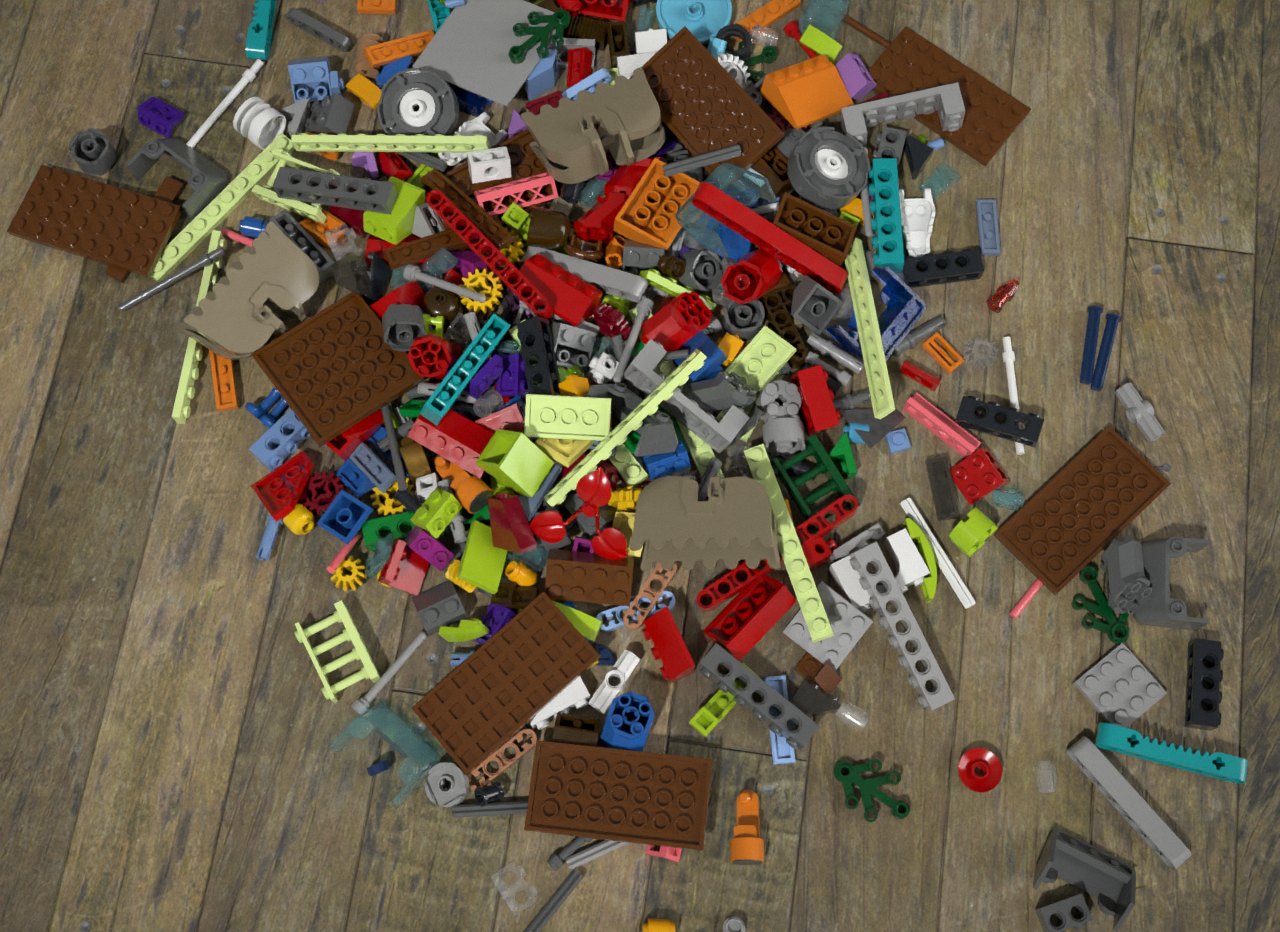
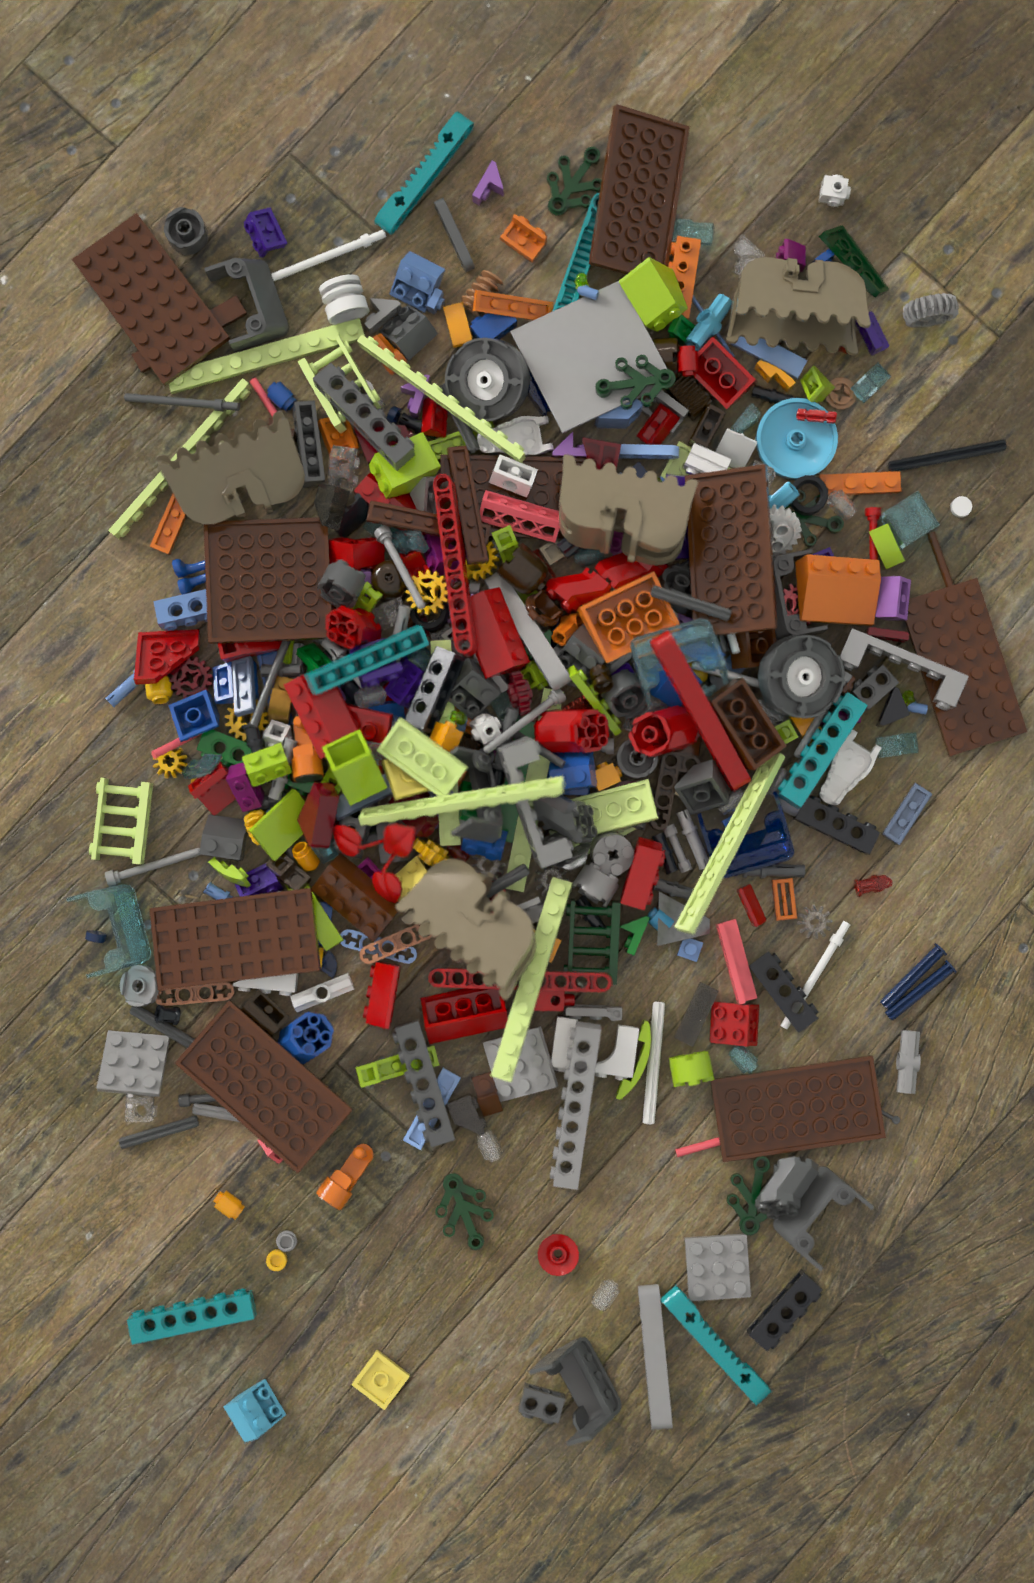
camera: 30 degrees right, 15 degrees up
(486, 857) = (133, 1063): none -> light grey plate

